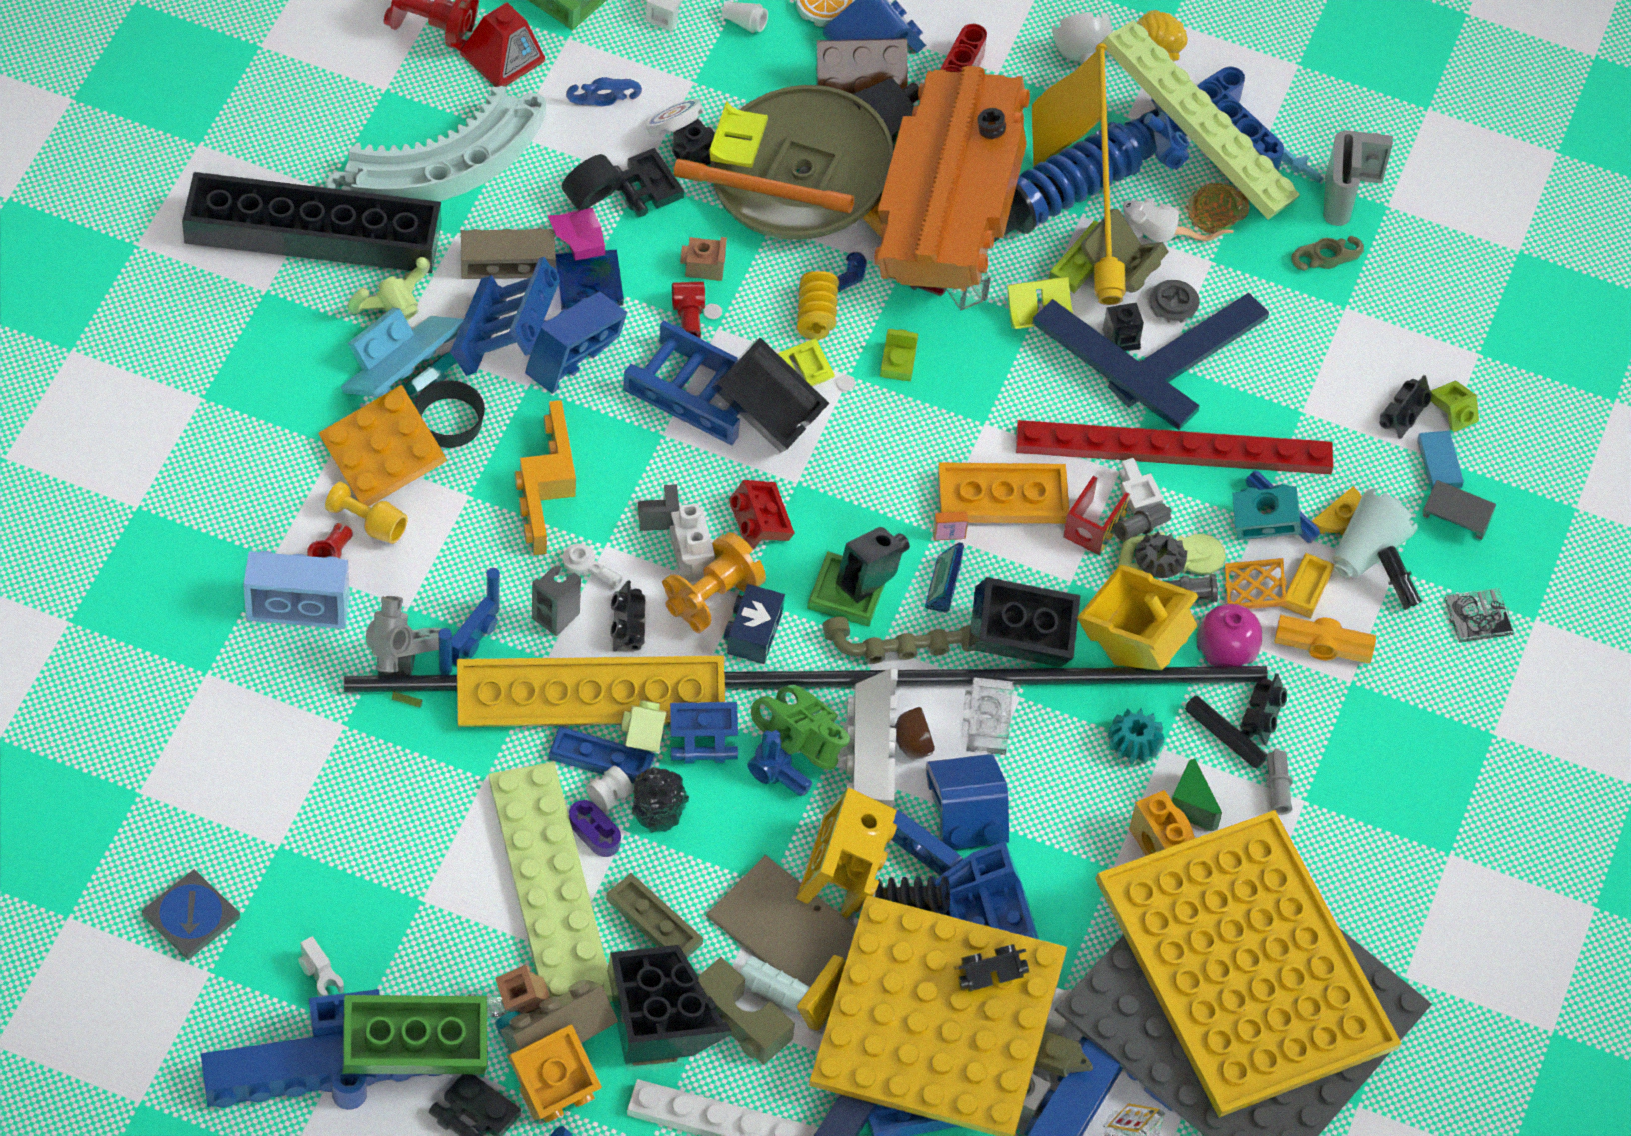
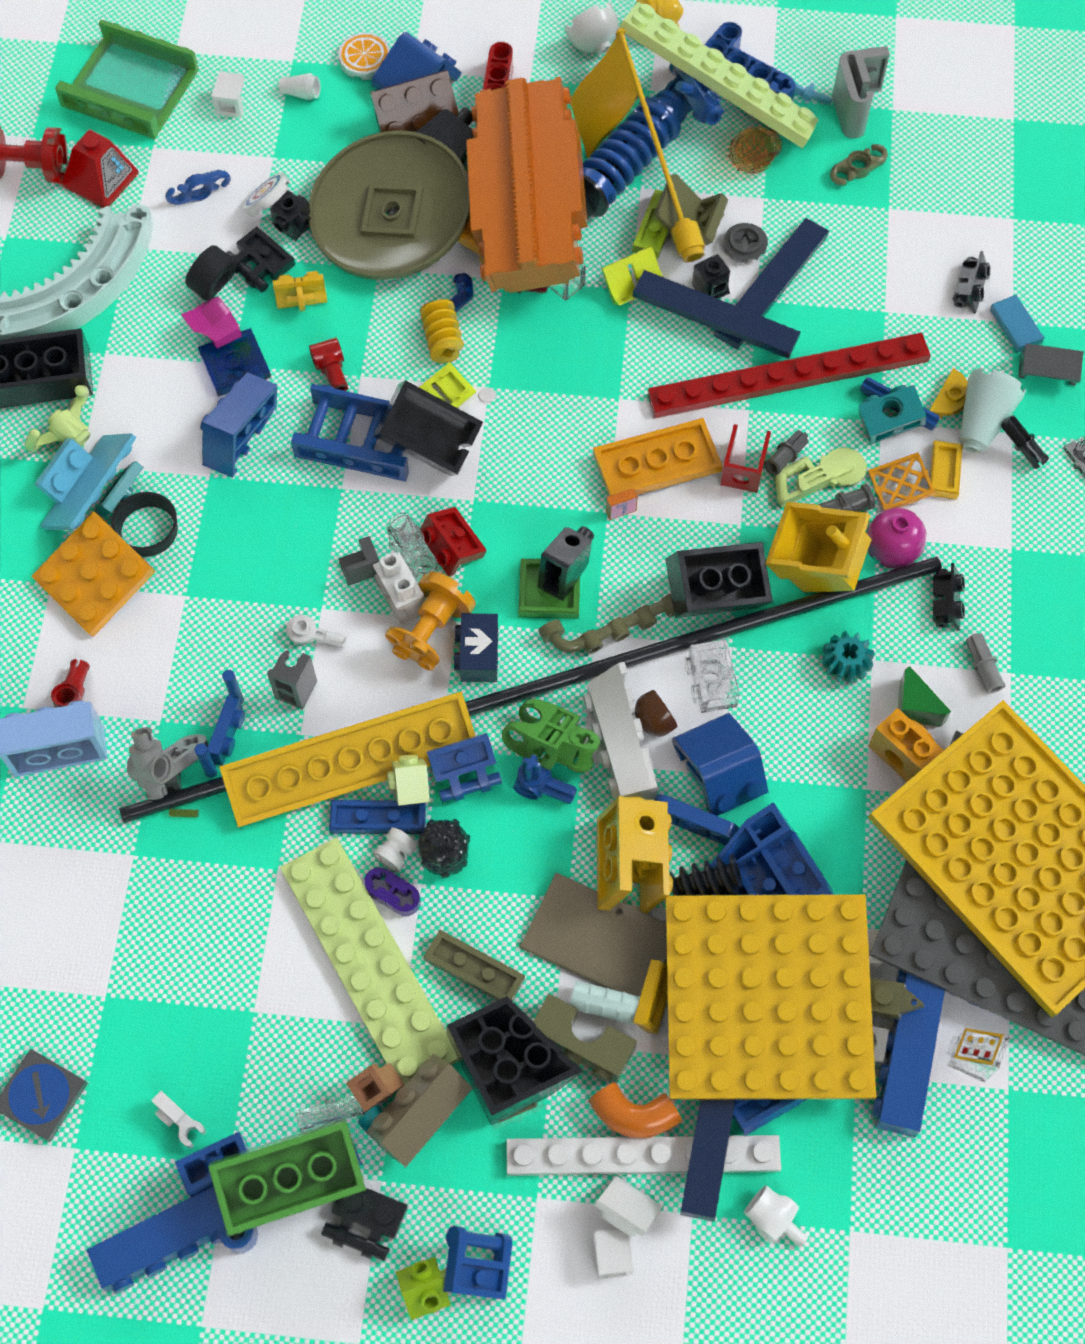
camera: 10 degrees left, 10 degrees up
(381, 521) = (112, 645): yellow piece -> none
(491, 303) = (152, 413): blue fence -> none
(505, 252) = (155, 359): dark tan brick -> none
(546, 478) = (249, 561): light orange bracket -> none
(554, 1074) = (430, 1164): light orange plate -> none
(628, 605) = (359, 662): black hinge -> none
(678, 224) = (300, 290): none -> yellow hips
(704, 258) = (330, 315): nougat brick -> none
(712, 311) = (351, 361): white sticker -> none
(716, 500) = (409, 541): none -> clear piece
(737, 124) = (327, 185): neon yellow piece -> none
(767, 1095) = (634, 1119): none -> orange cylinder
(826, 199) = (421, 233): orange piece -> none
(899, 355) = (526, 357): lime bracket -> none
(945, 579) = (632, 555): clear blue slope -> none
(991, 115) = (544, 118): black bush -> none
(1005, 963) = (794, 944): black hinge -> none
(1142, 489) = (772, 420): white plate -> none
(1159, 222) = (711, 175): white animal -> none
(1169, 564) = (803, 484): dark grey gear -> none
(1226, 732) = (922, 628): black axle -> none
(1325, 639) = (979, 516): light orange piece -> none
(1458, 403) = (1014, 267): lime bracket -> none

